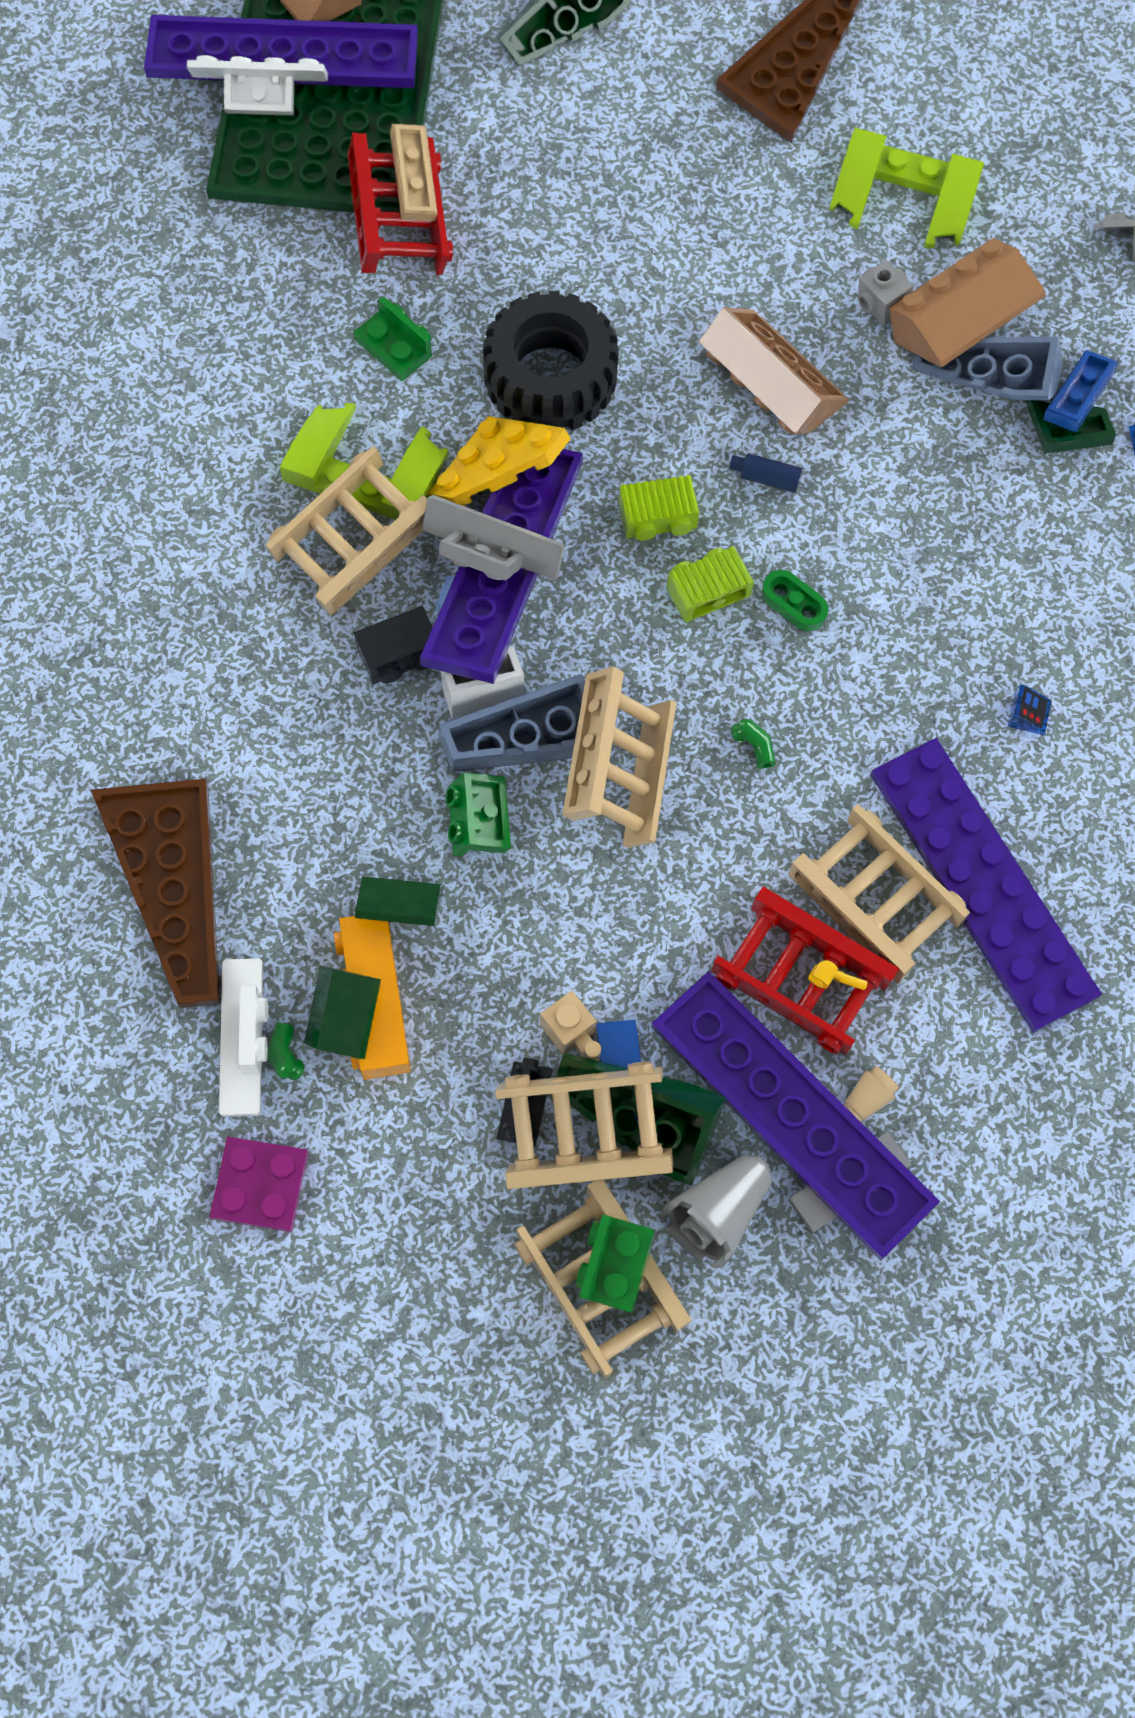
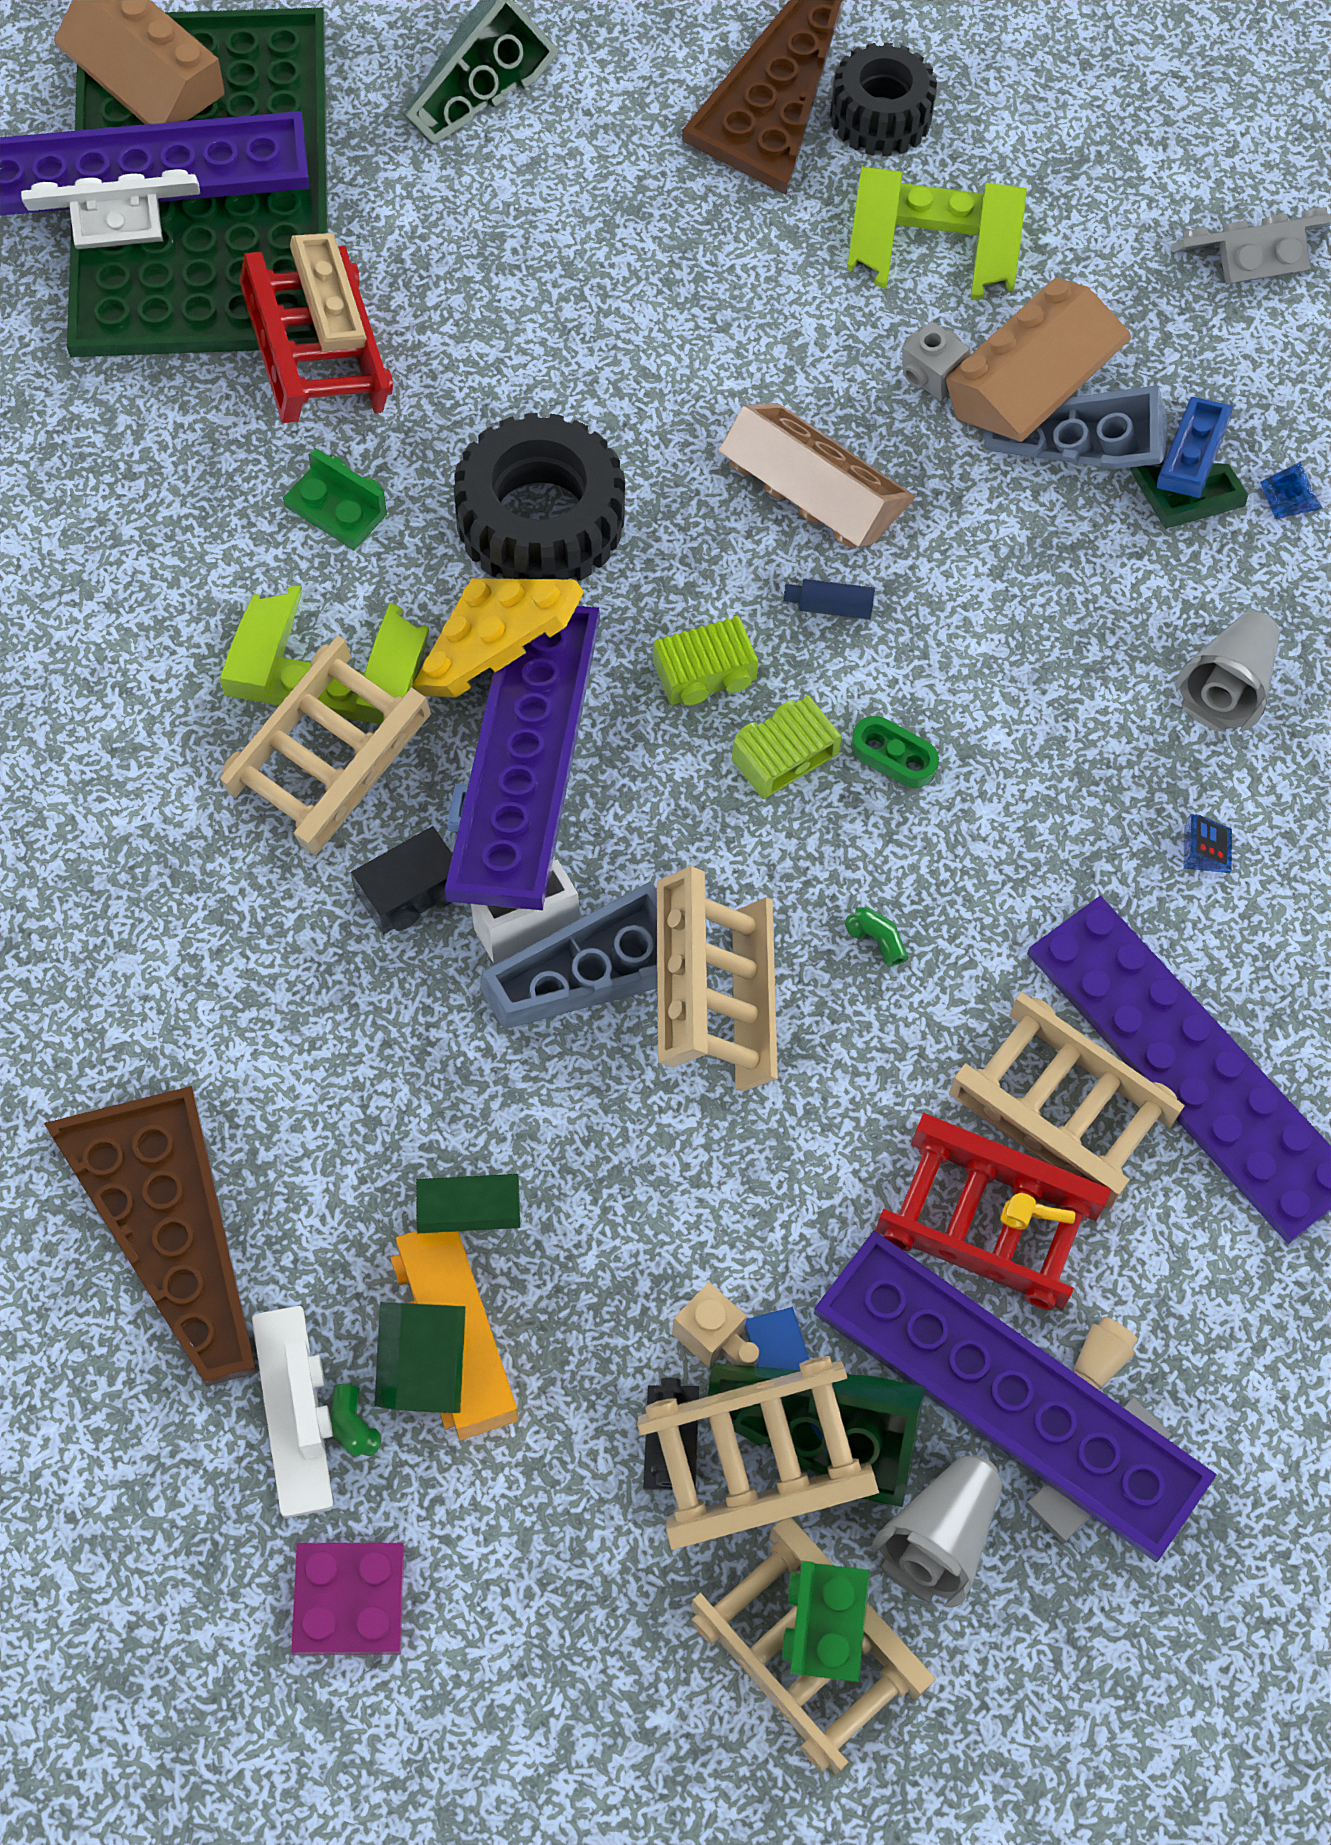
camera: 10 degrees left, 5 degrees down
(478, 814) = (547, 1078): green bracket -> none
(489, 543) = (506, 734): light grey bracket -> none
(876, 93) = (879, 122): none -> black tyre
(1075, 577) = (1232, 674): none -> light grey cone

